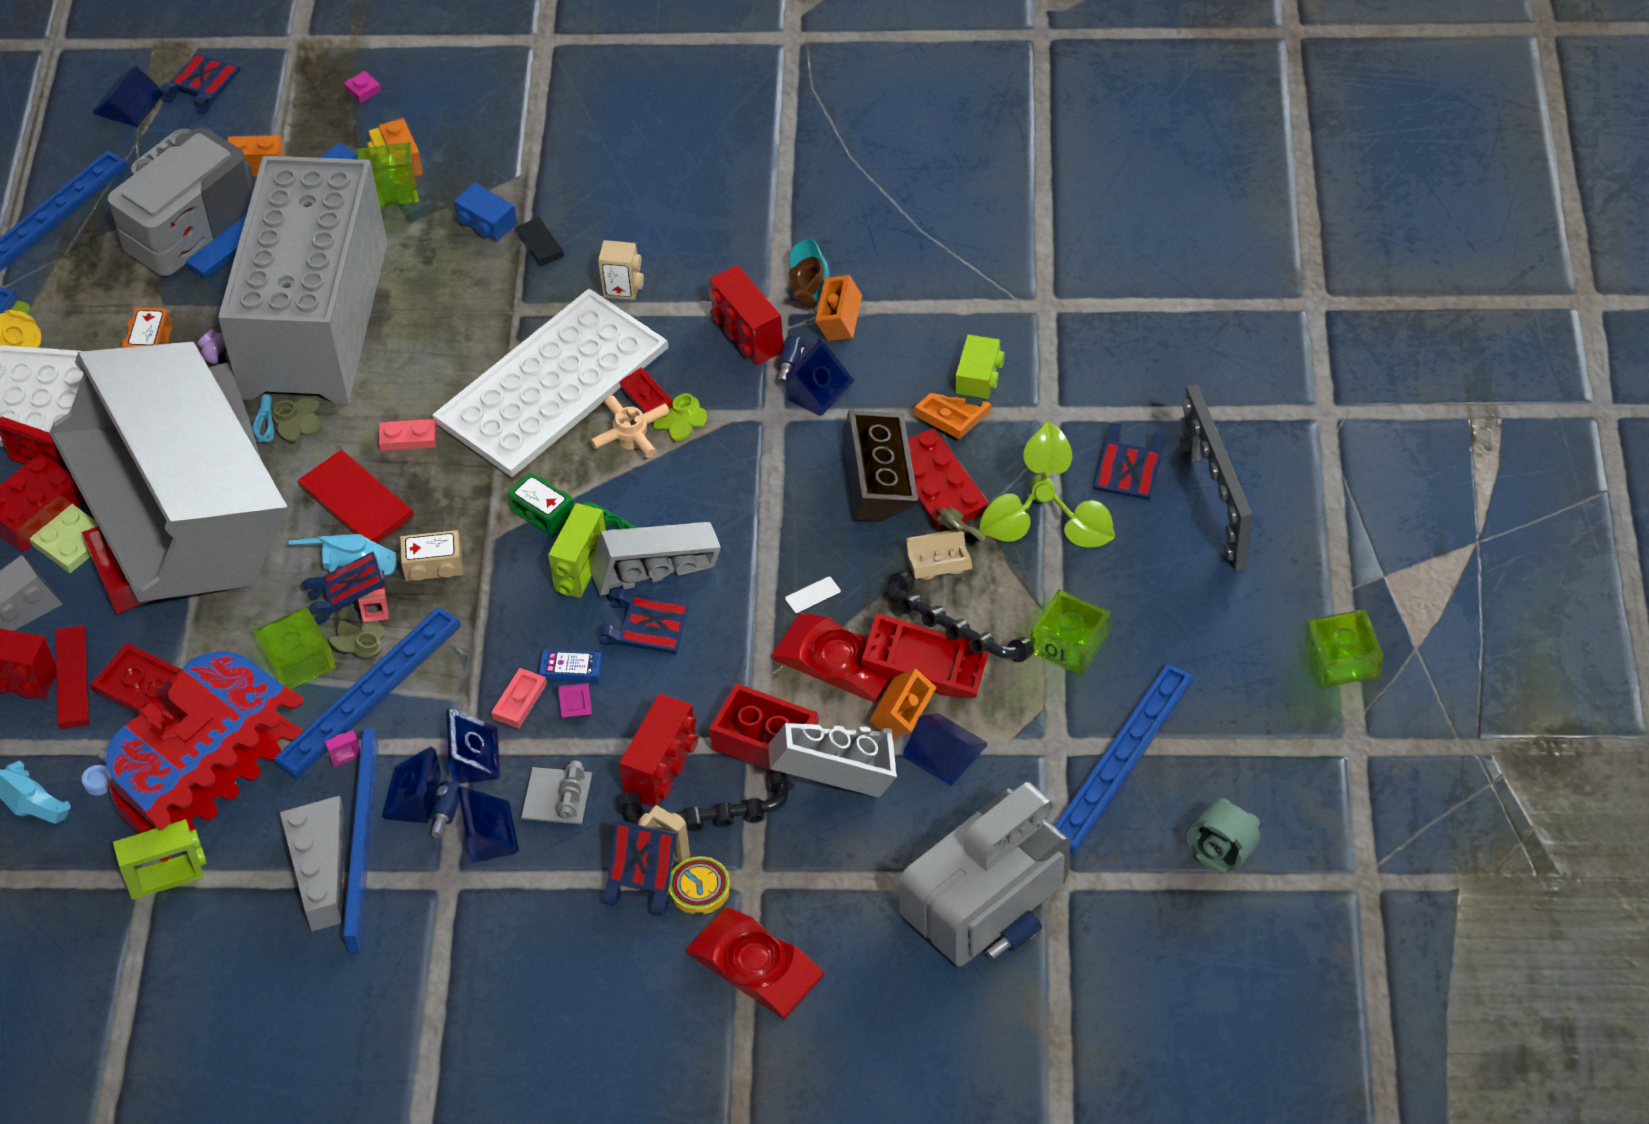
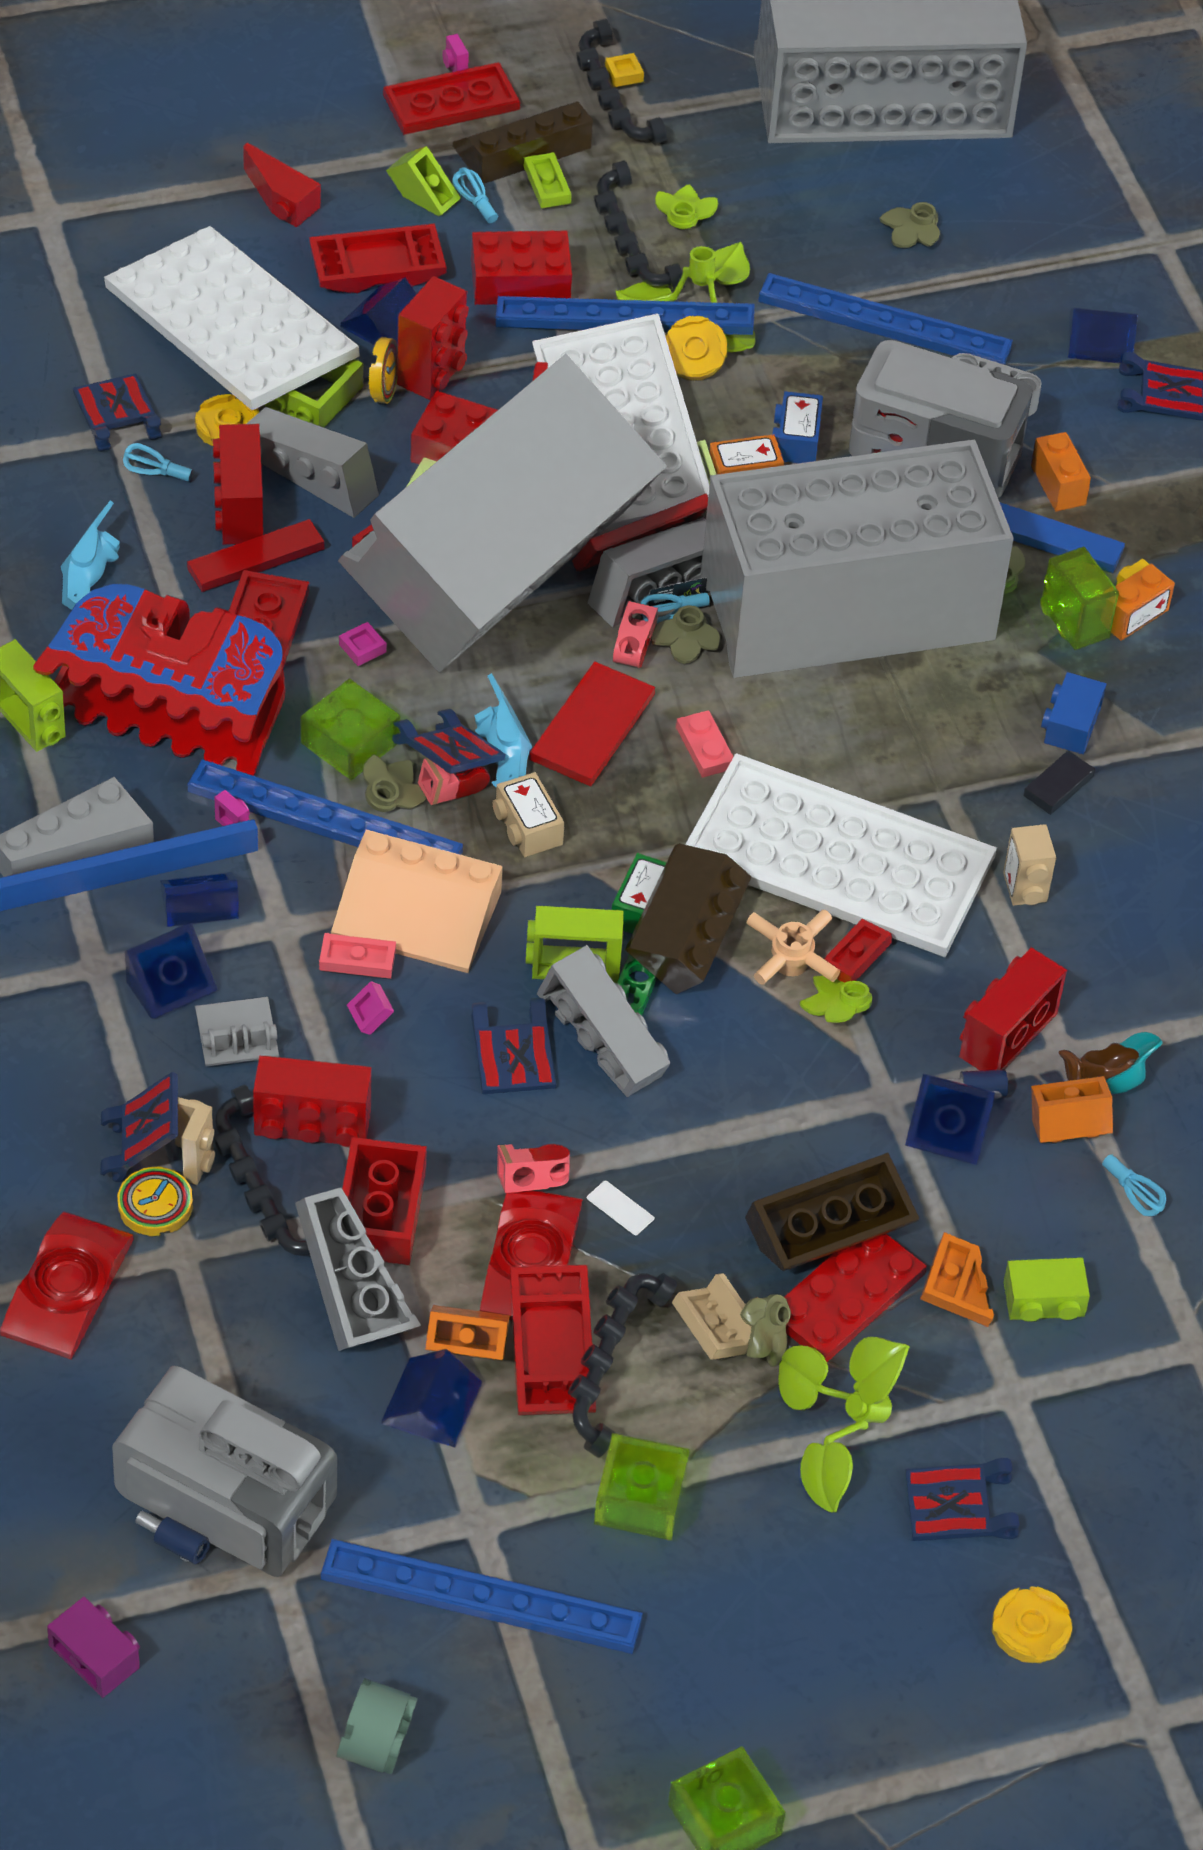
camera: 65 degrees right, 0 degrees up
(124, 292) = (799, 426): none -> brick
(206, 623) = (362, 644): none -> dark pink plate
(254, 406) = (685, 588): none -> black sticker
(285, 447) = (635, 635): none -> coral leg
(444, 807) = (202, 924): dark blue piece -> none
(471, 748) = (269, 927): clear blue slope -> none
(483, 646) = (420, 898): none -> light nougat slope
(571, 665) = (424, 993): tile -> none
(580, 474) = (688, 916): none -> dark brown slope
(766, 634) = (532, 1167): none -> coral leg
(900, 301) = (1128, 1180): none -> medium azure piece
(1098, 1006) = (94, 1646): none -> magenta brick
(1202, 440) = (1014, 1539): dark grey plate -> none
(1244, 449) = (1031, 1624): none -> yellow tile

